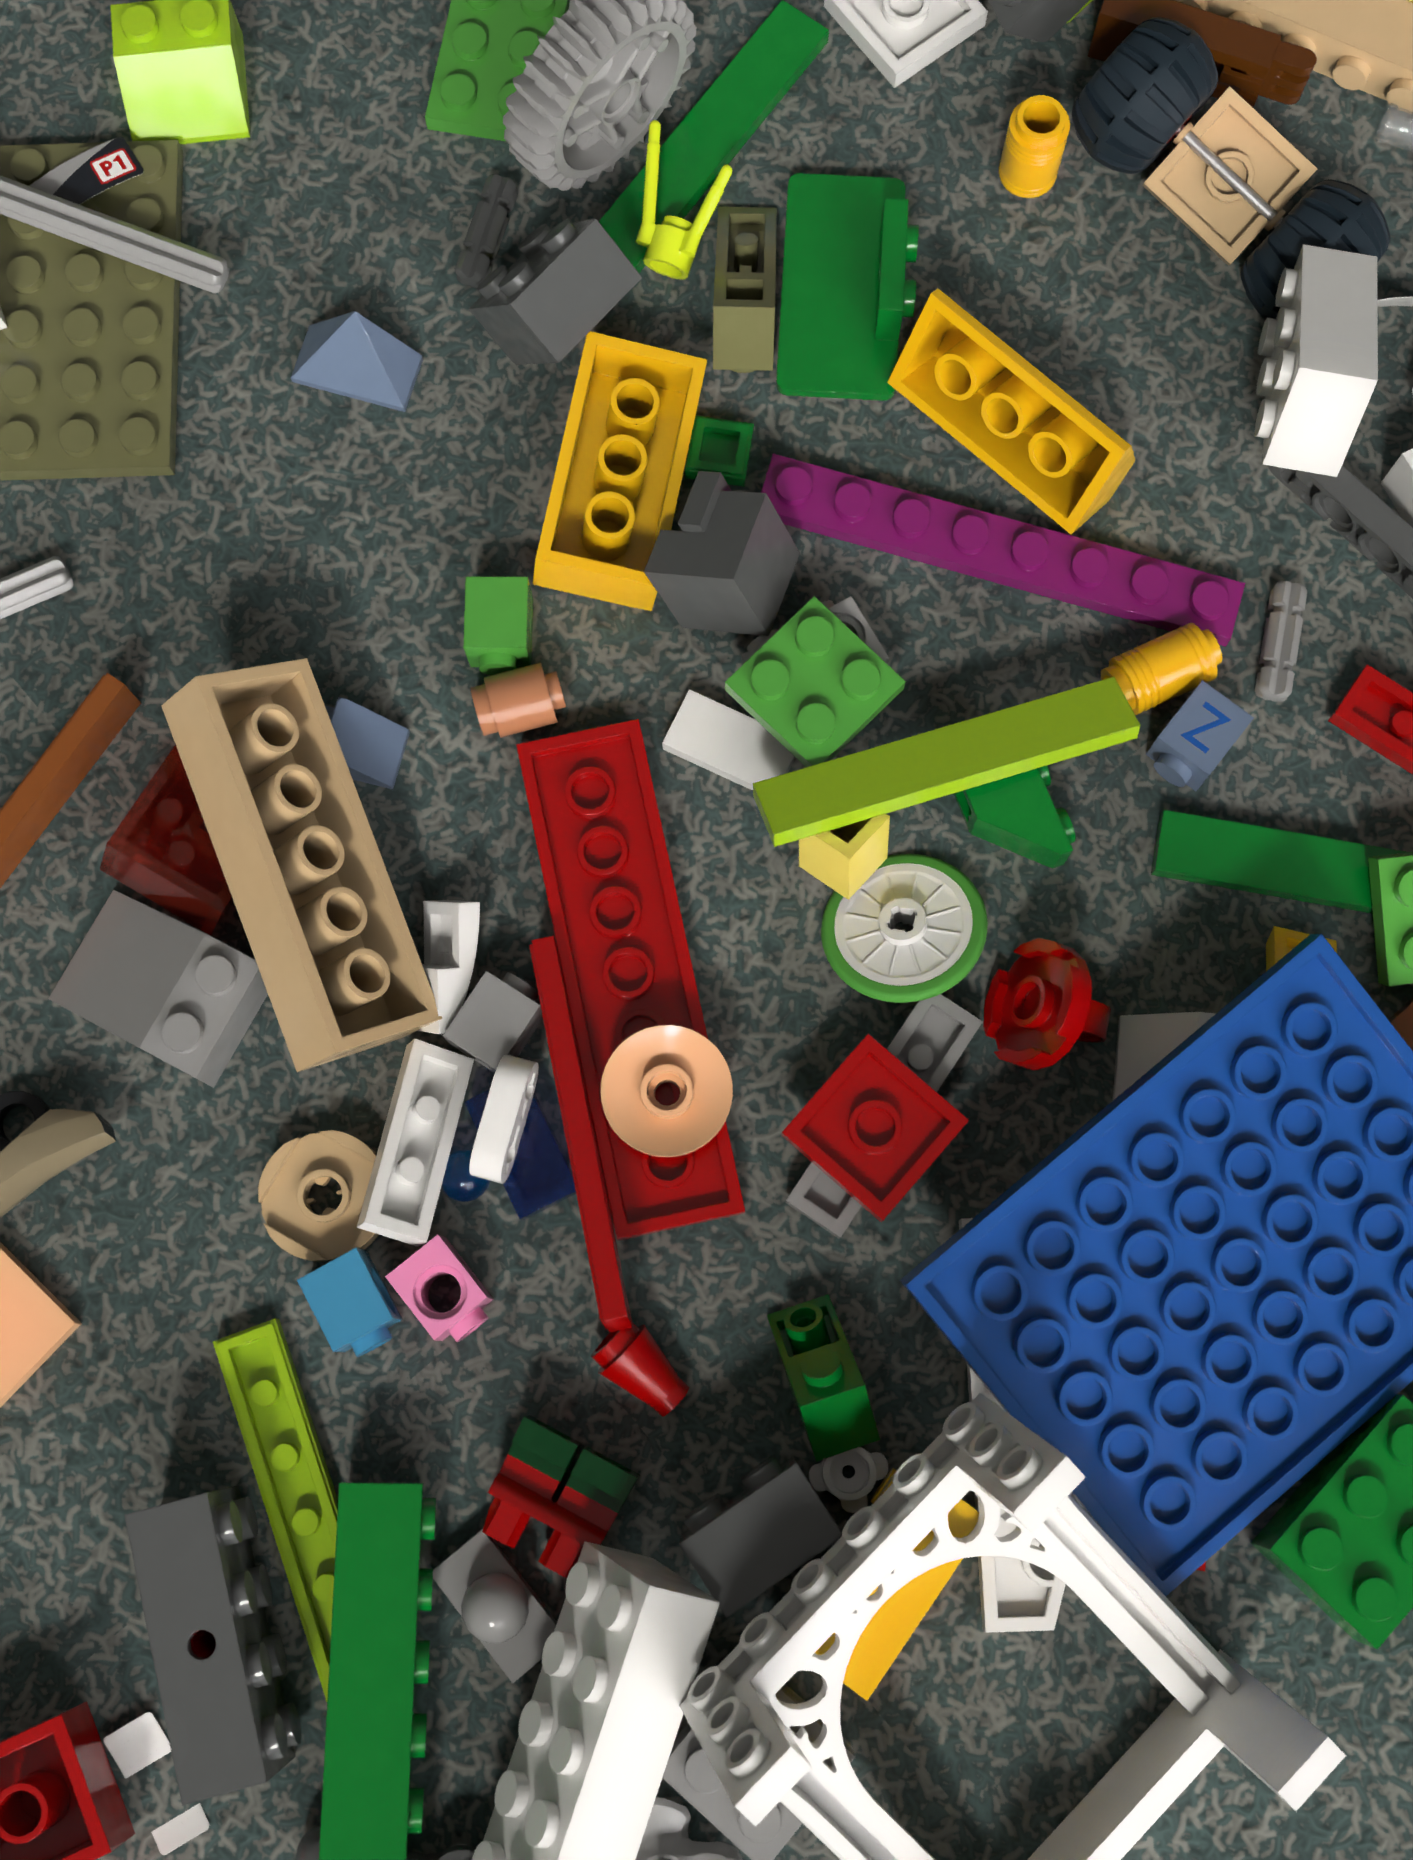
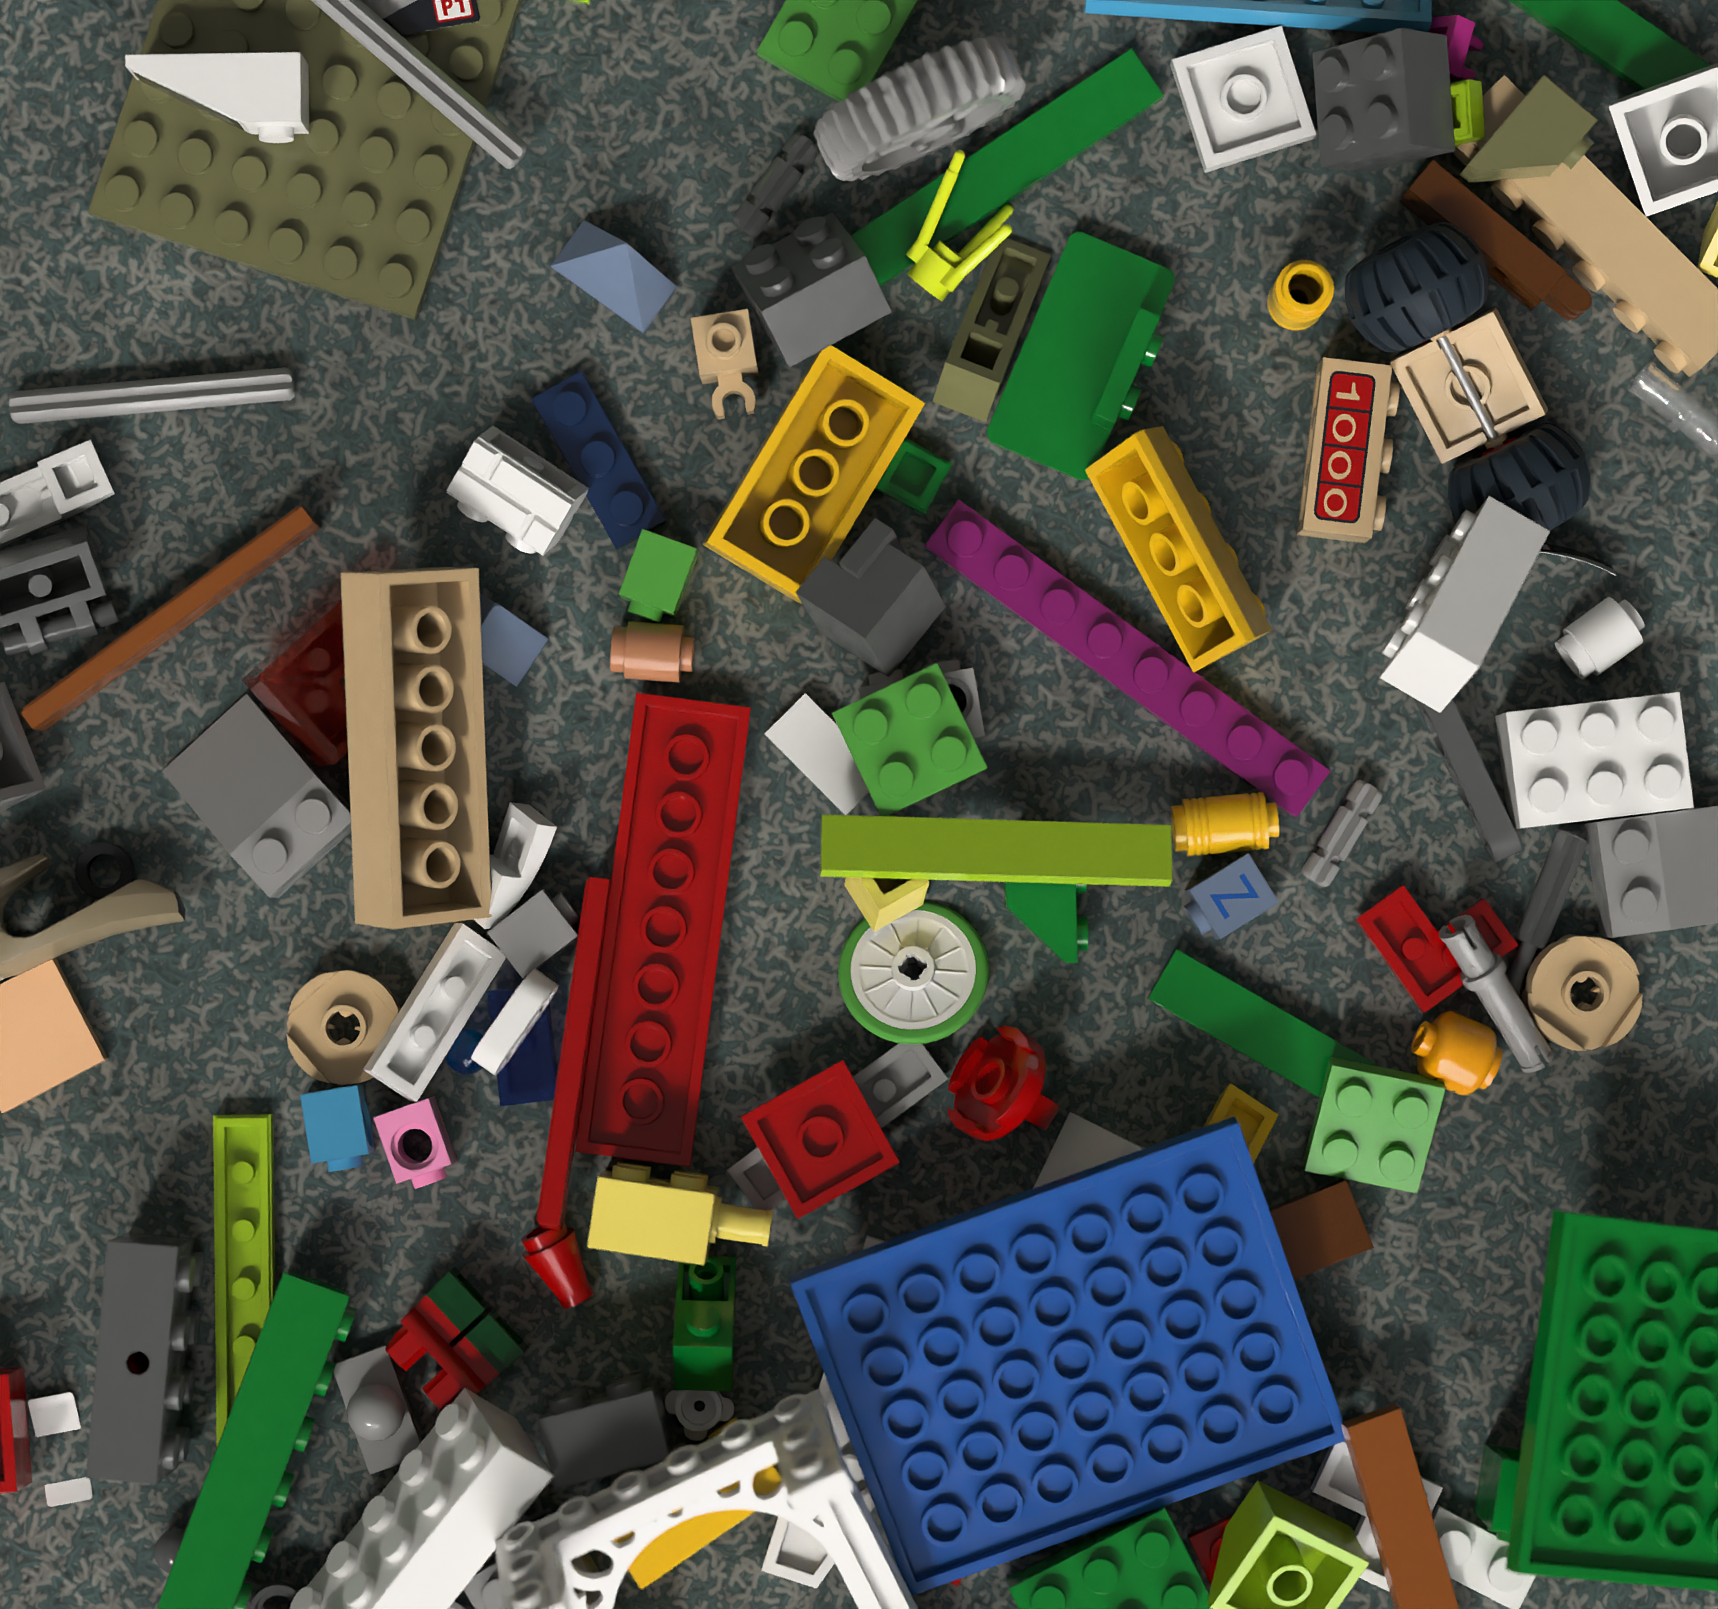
camera: 20 degrees right, 10 degrees up
(325, 590) = (516, 492): none -> white brick
(398, 539) = (598, 460): none -> dark blue plate
(492, 391) = (726, 356): none -> tan brick
(659, 1057) = (627, 1056): light nougat dish -> none
(744, 1267) = (668, 1217): none -> light yellow brick
(1135, 279) = (1347, 450): none -> brick

